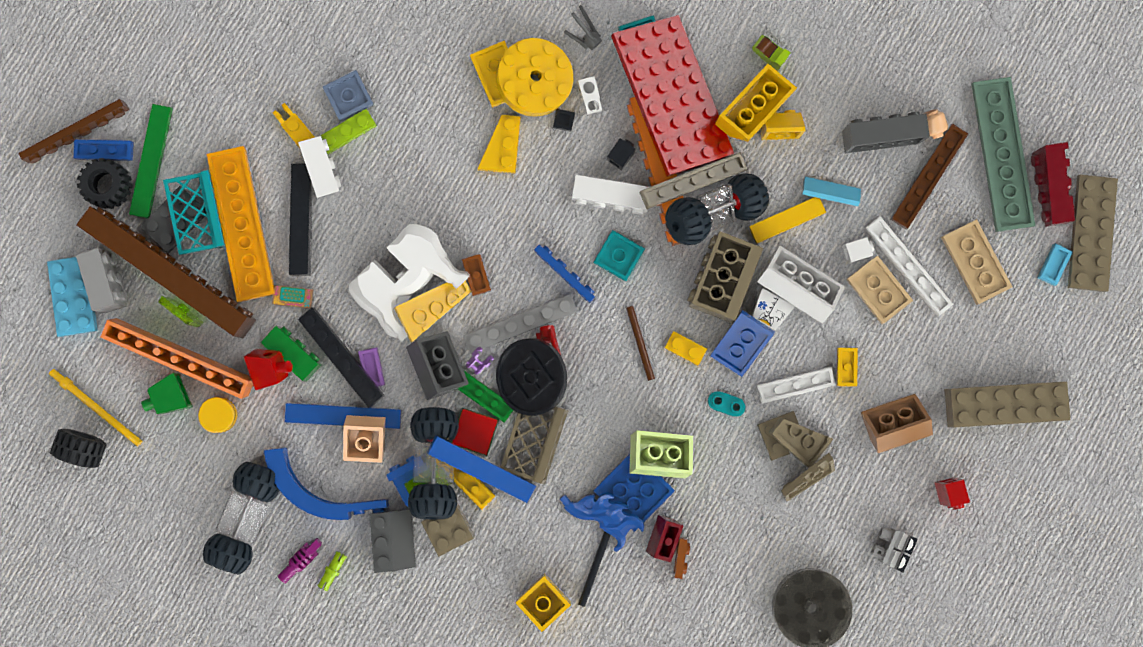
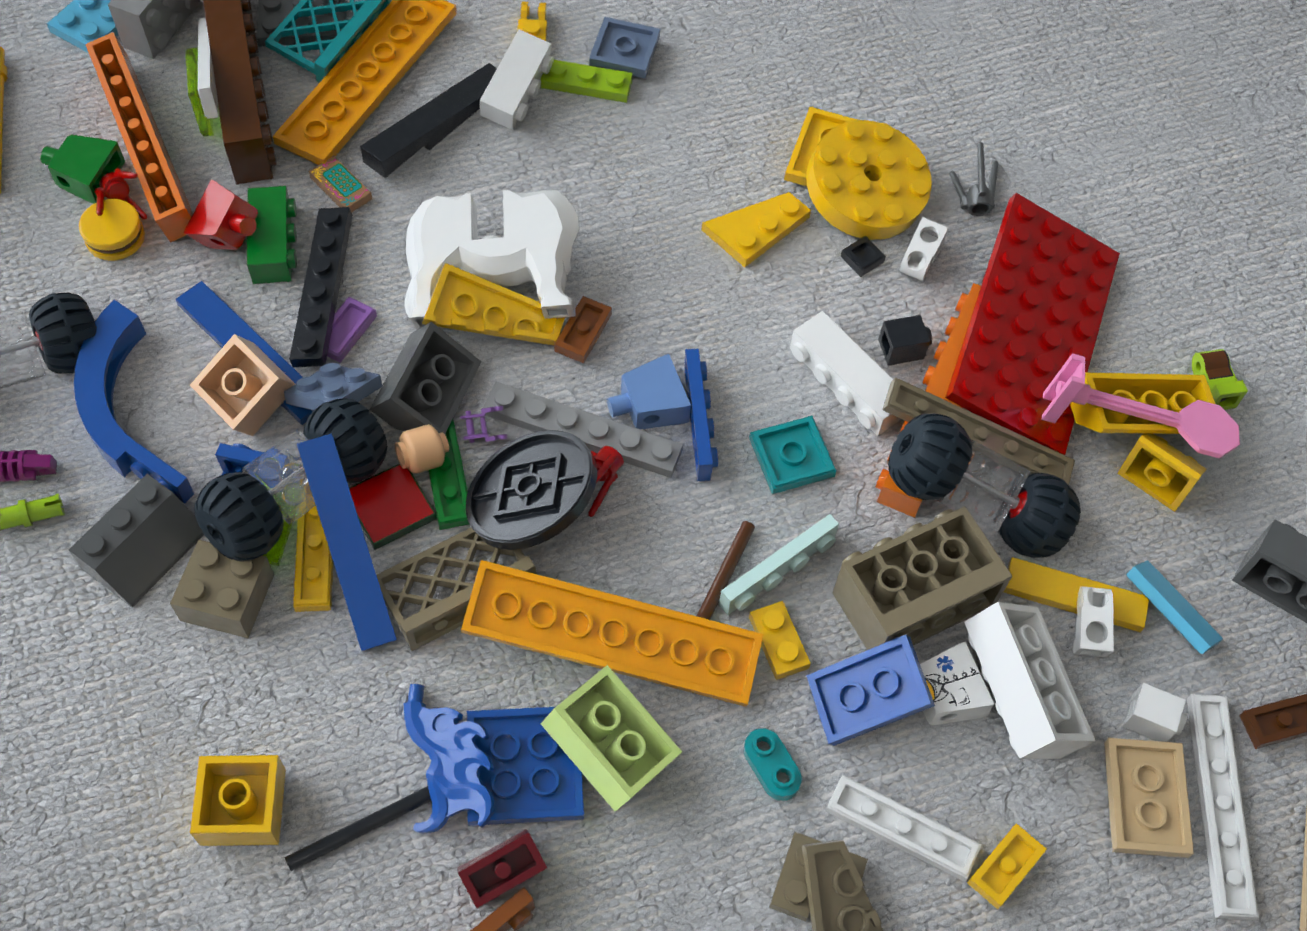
camera: 35 degrees right, 25 degrees down
(195, 315) = (206, 78): none -> white tile
(198, 394) = (115, 187): none -> red plant
(402, 405) = (332, 383): none -> sand blue plate
(467, 398) = (421, 449): none -> light nougat head
(537, 282) = (652, 396): none -> medium blue torso
(621, 410) = (612, 631): none -> light orange plate
(661, 308) = (770, 571): none -> light aqua plate
(788, 97) = (1201, 423): none -> bright pink piece
(806, 231) = (1094, 622): none -> white leg

